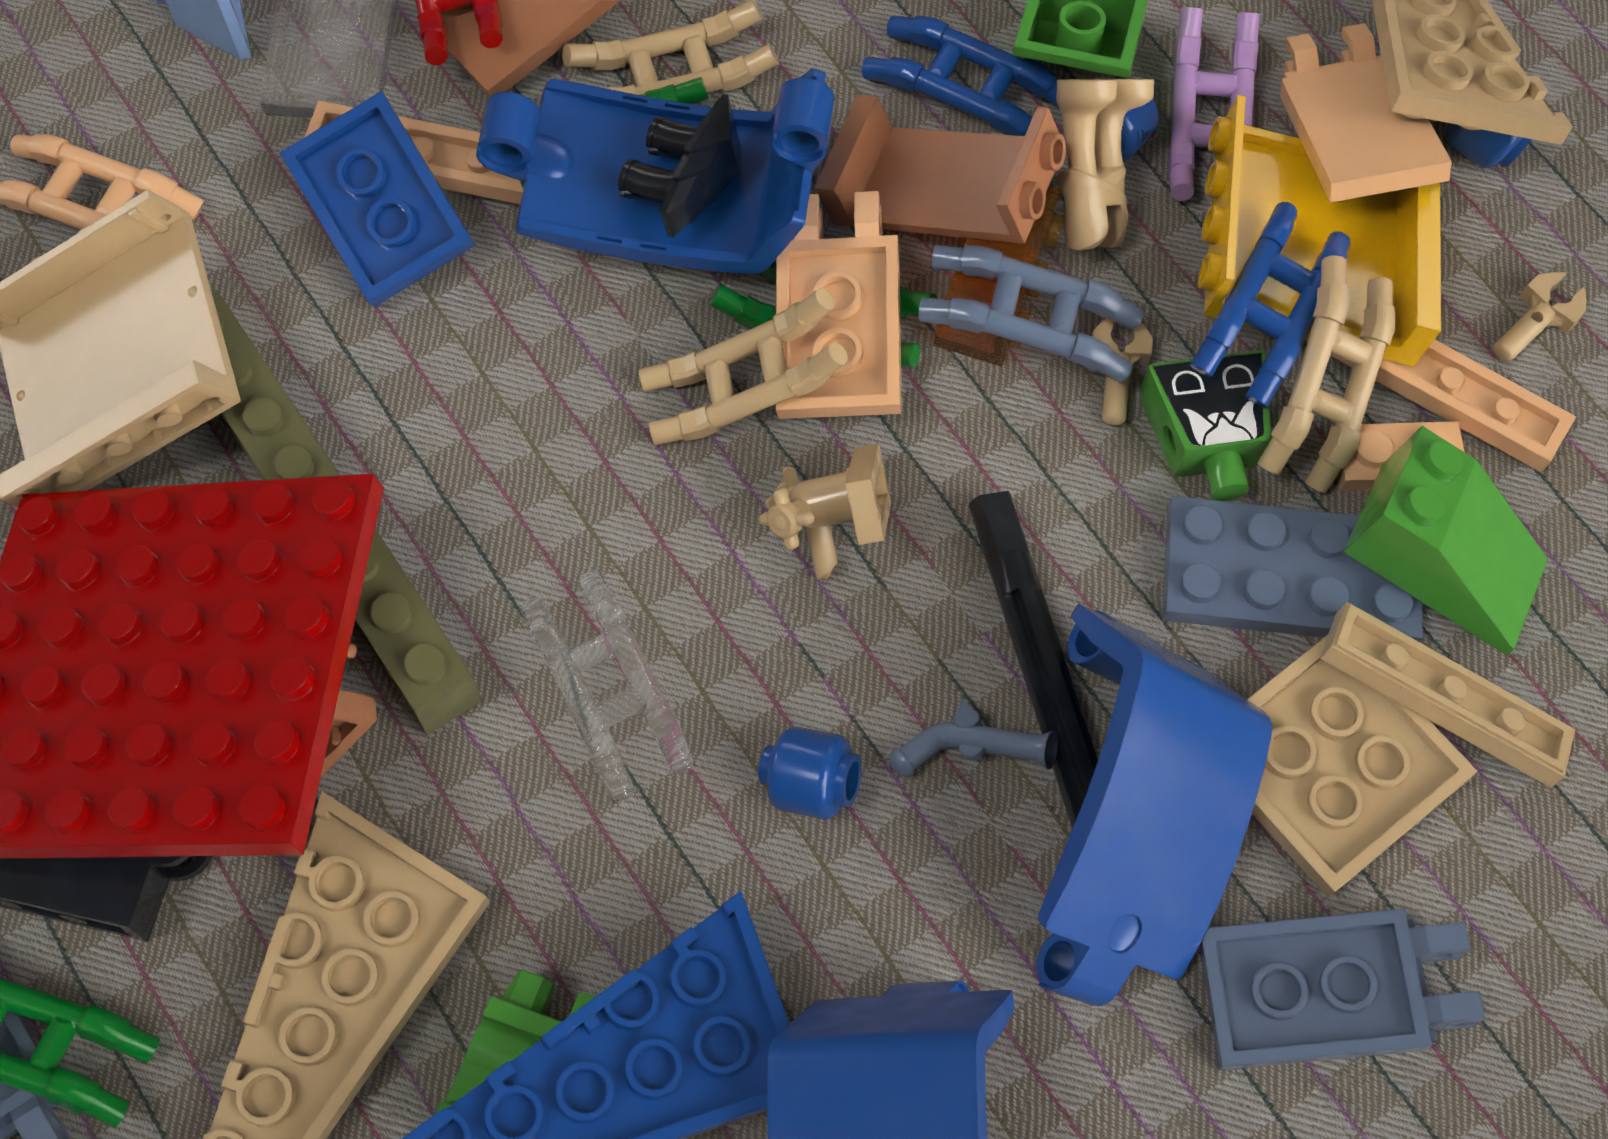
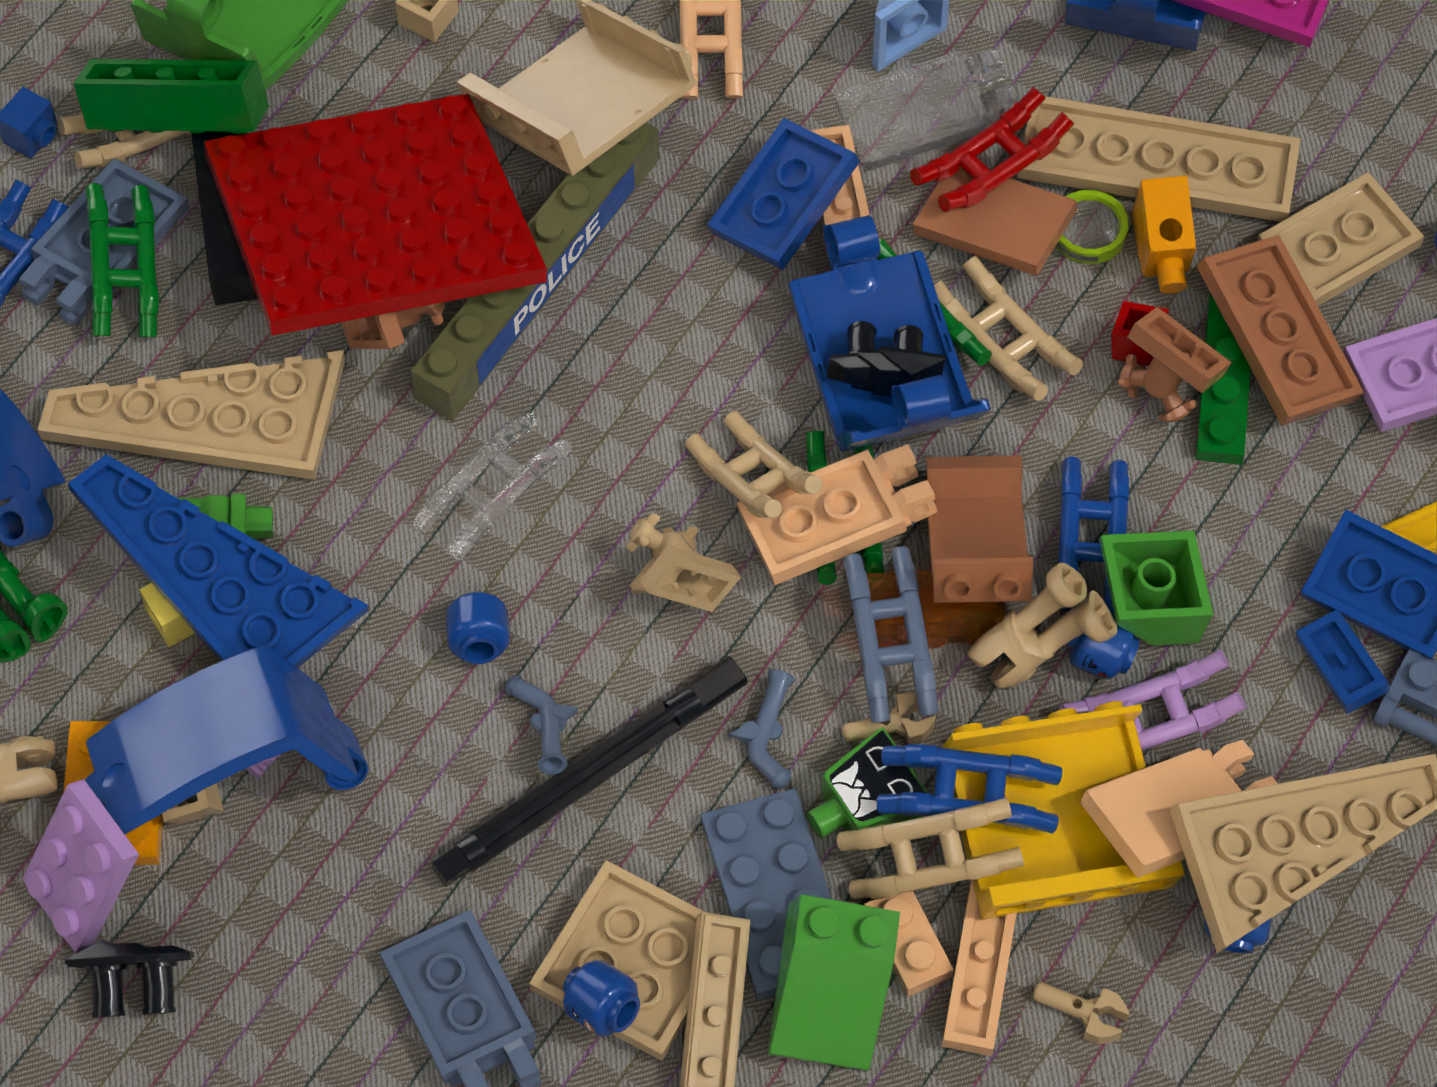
camera: 70 degrees right, 5 degrees down
(1076, 499) = (766, 728): none -> sand blue piece
(1155, 818) = (536, 824): blue panel -> none
(1406, 807) = (601, 998): none -> blue head

